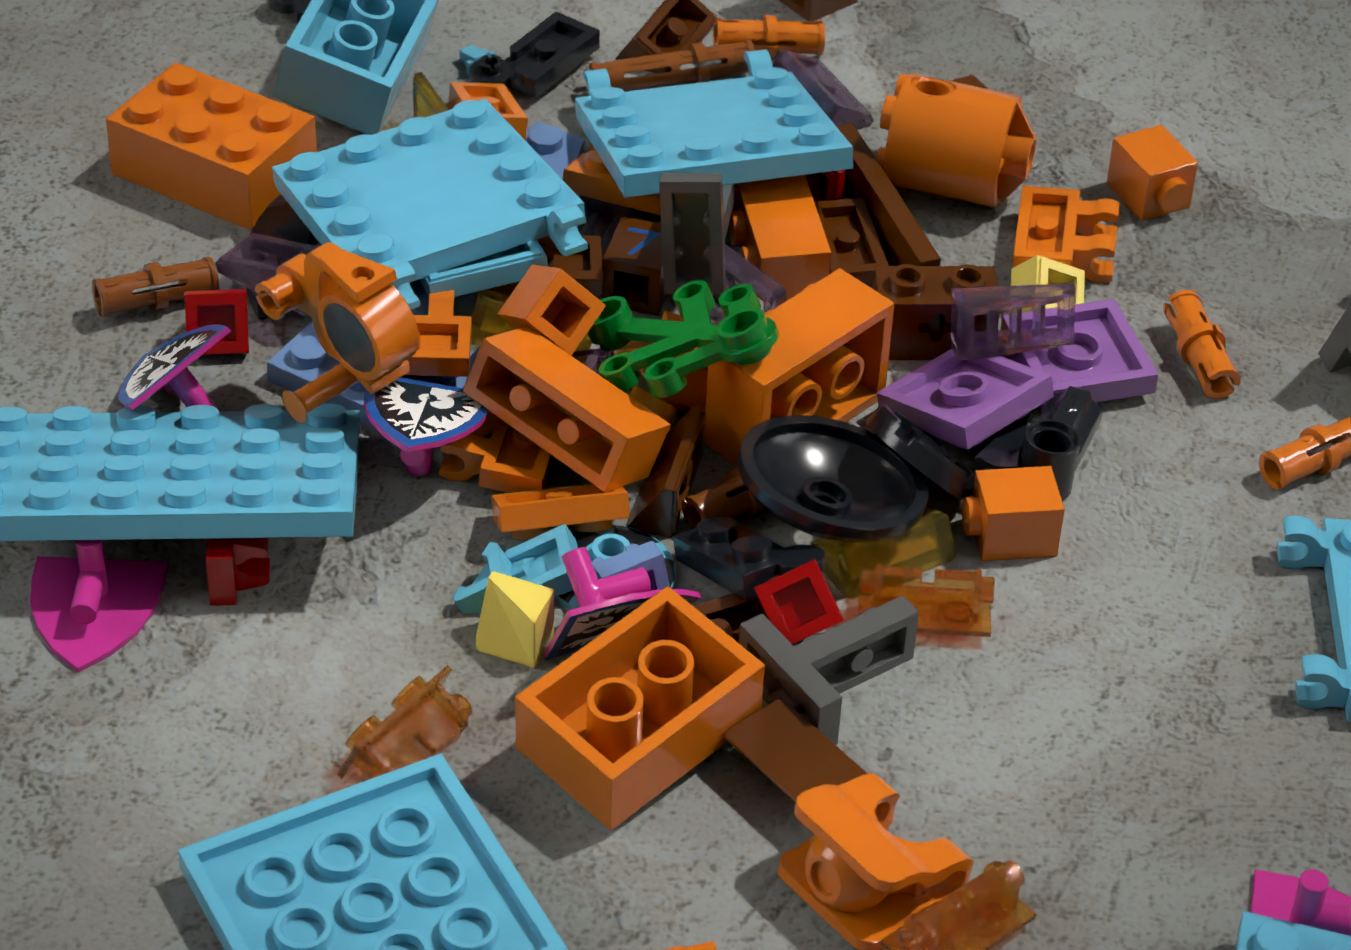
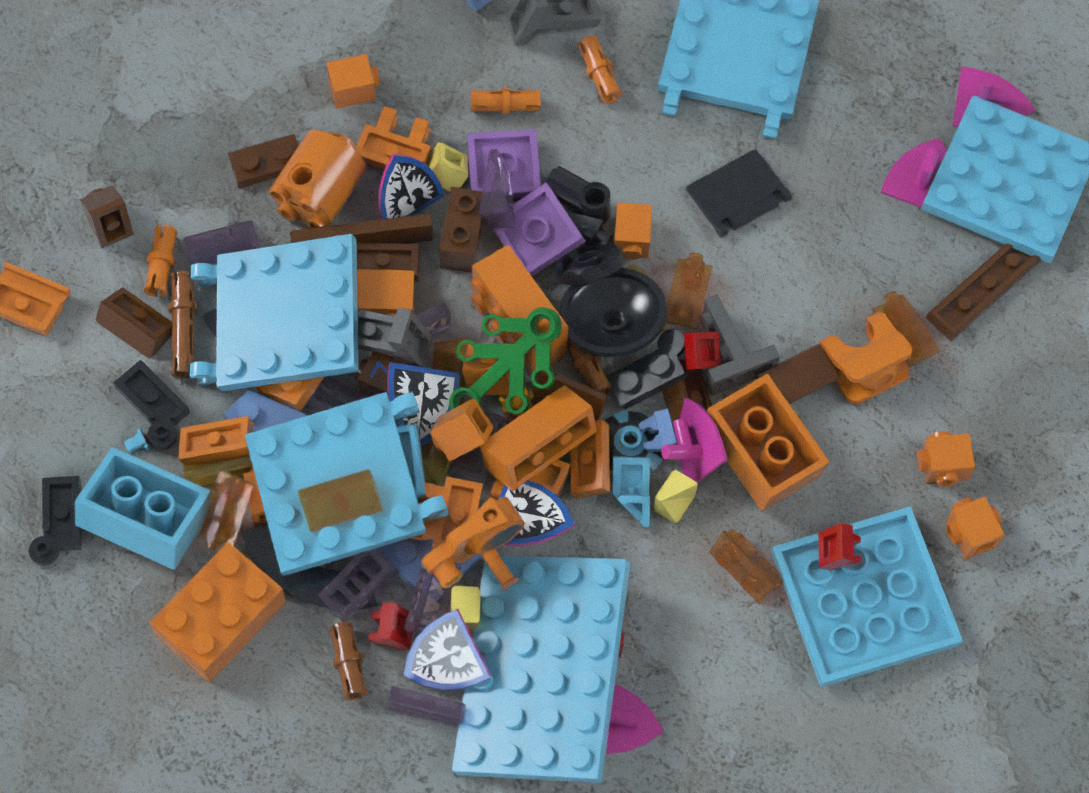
camera: 80 degrees left, 25 degrees up
(86, 360) = (426, 706): none -> clear purple tile
(254, 379) = (468, 602): none -> light yellow slope
(265, 349) = (428, 601): none -> clear purple tile
(383, 106) = (226, 510): none -> clear orange hinge
(390, 181) = (340, 500): none -> clear orange slope
(443, 816) = (837, 547): none -> red tile
(617, 264) = (430, 388): none -> shield
(980, 223) = (407, 187): none -> shield
(1159, 660) = (738, 192): none -> black piece

